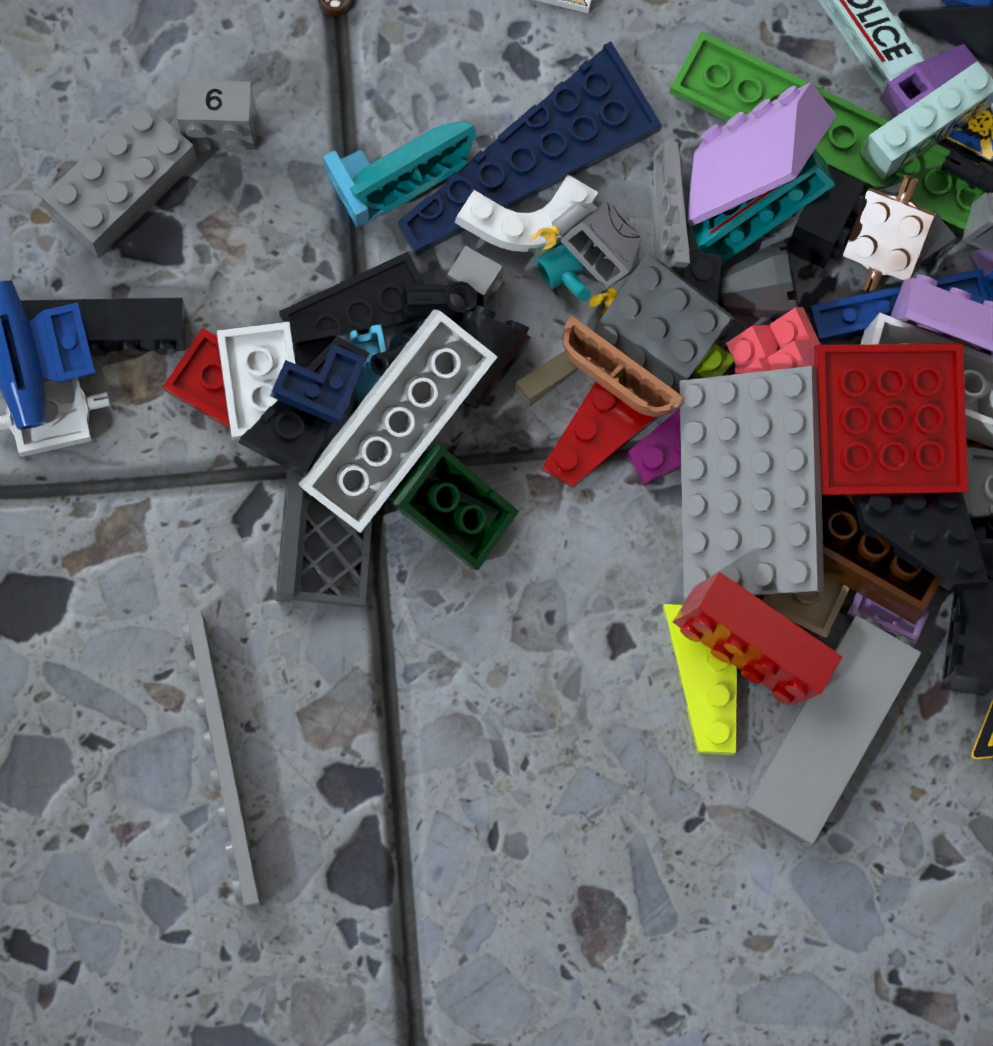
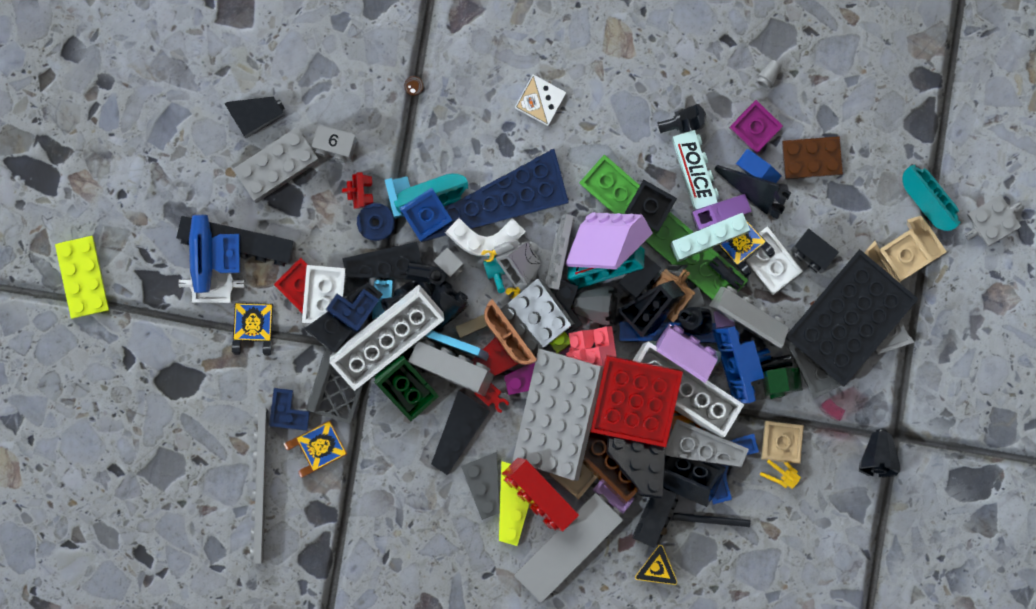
camera: 20 degrees right, 10 degrees up
(61, 102) = (255, 114): none -> black slope
(139, 469) = (252, 324): none -> flag
(236, 618) = (283, 415): none -> dark blue plate
(275, 191) = (355, 190): none -> red hips
(317, 660) = (319, 446): none -> flag
(320, 221) = (366, 217): none -> dark blue plate
(412, 194) = (425, 214): none -> blue plate
(529, 407) = (457, 344): none -> medium azure tile
(531, 450) = (454, 369): none -> light grey brick
(571, 565) = (460, 428): none -> black wing
(610, 488) = (492, 397): none -> red plate
(642, 656) = (483, 484): none -> dark grey wing
(826, 71) = (652, 204): none -> black brick
(868, 255) = (652, 308): none -> black wedge
(951, 262) = (696, 320): none -> black piece

